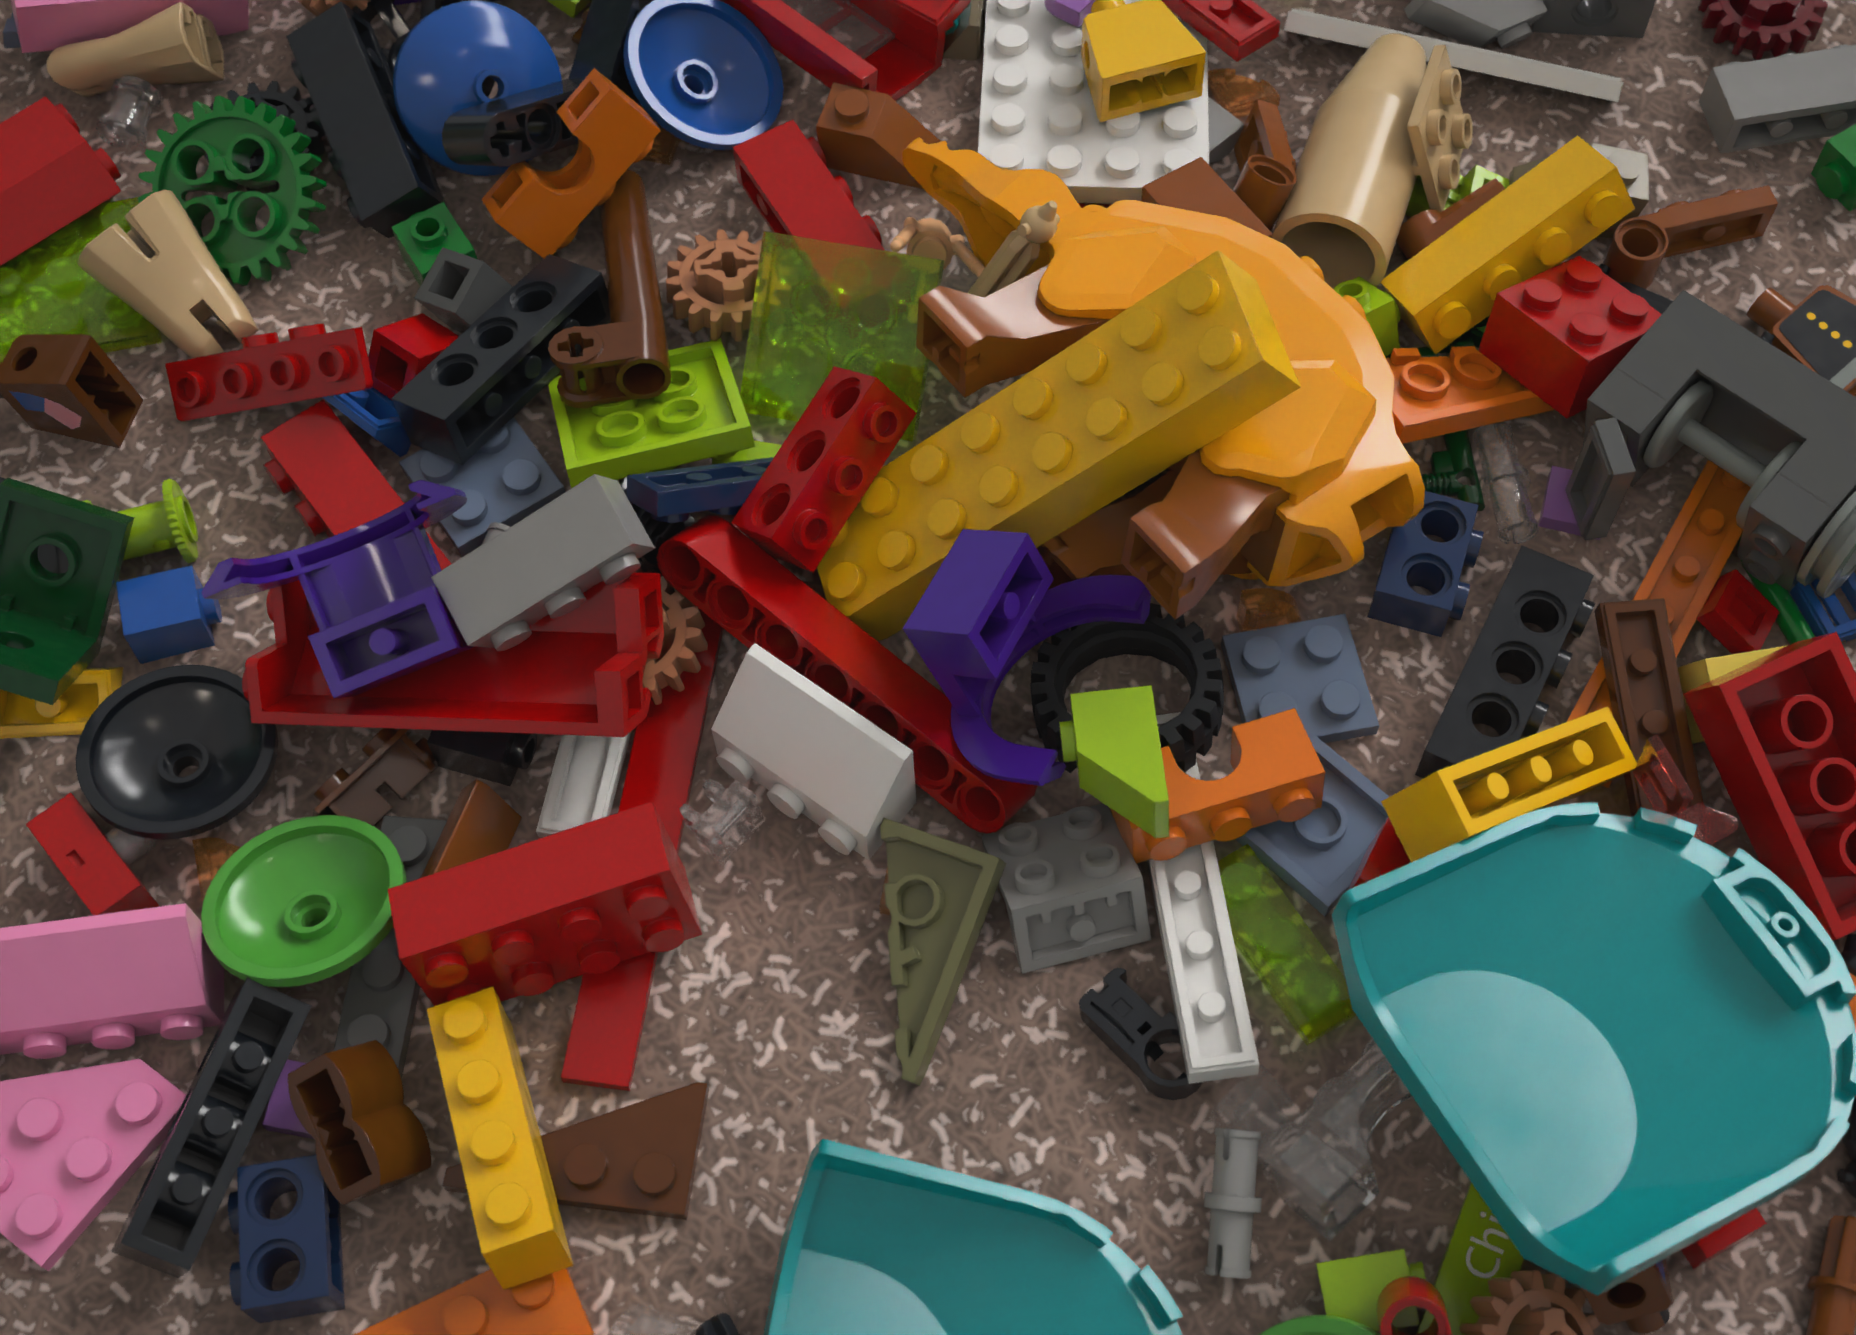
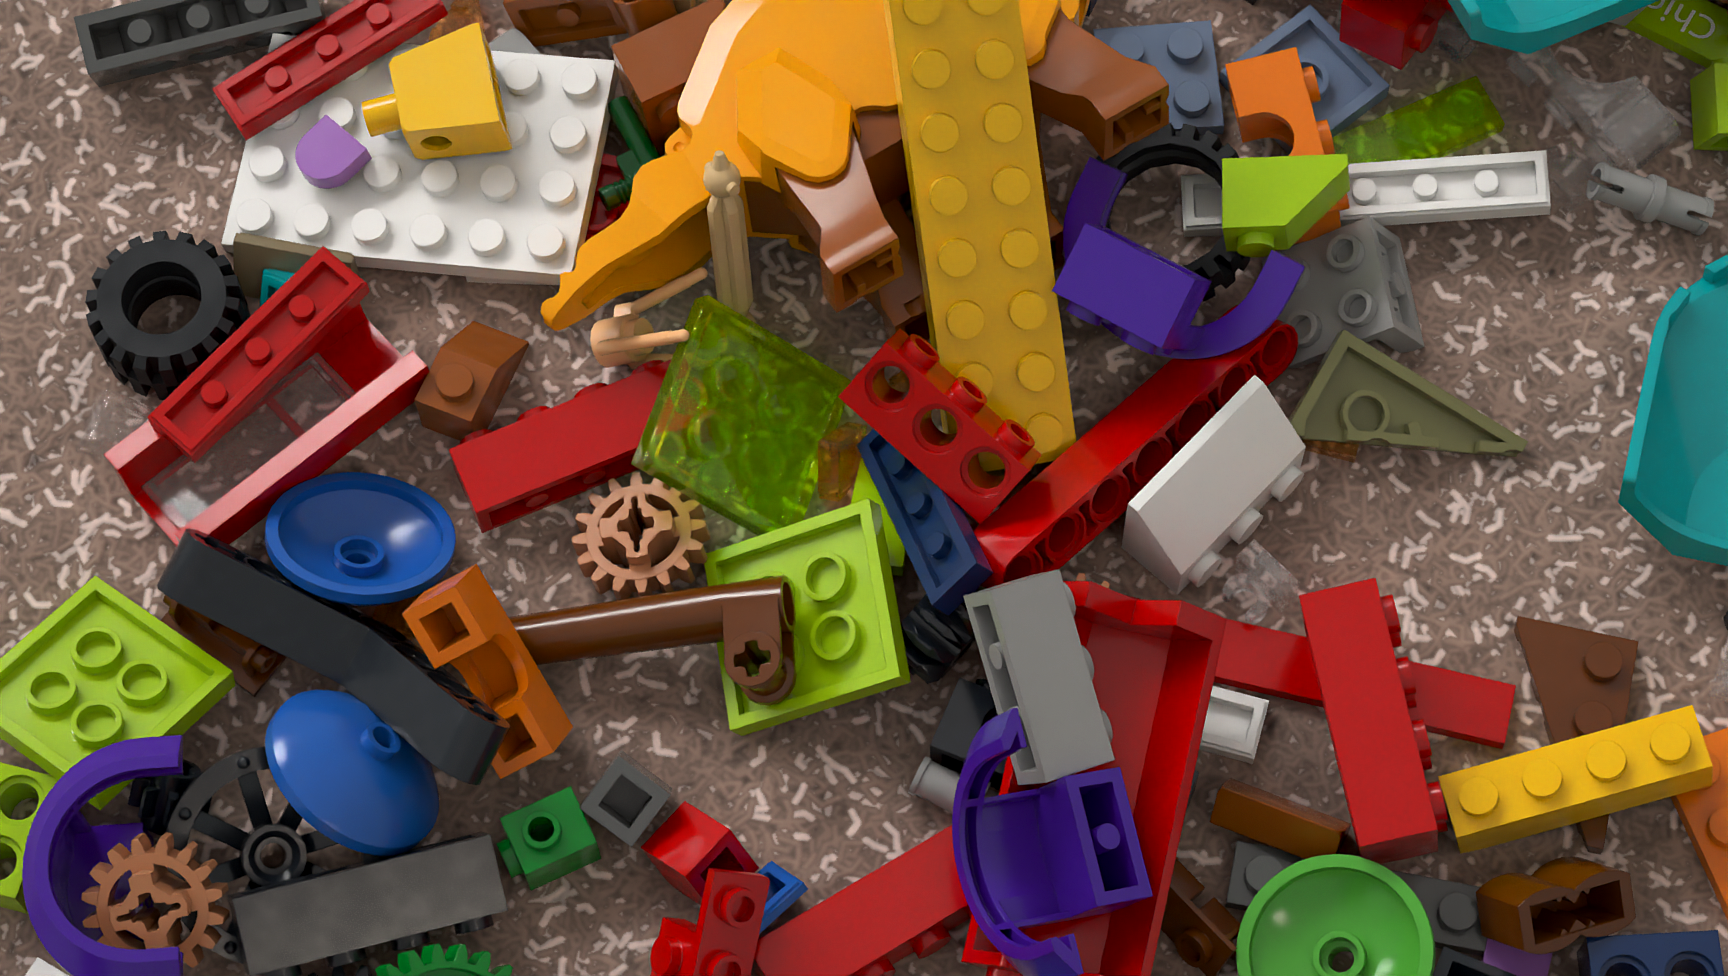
camera: 85 degrees left, 5 degrees up
(499, 360) = (796, 808): black brick -> none
(501, 484) = (839, 805): sand blue plate -> none
(1134, 1032) = (1488, 260): black piece -> none

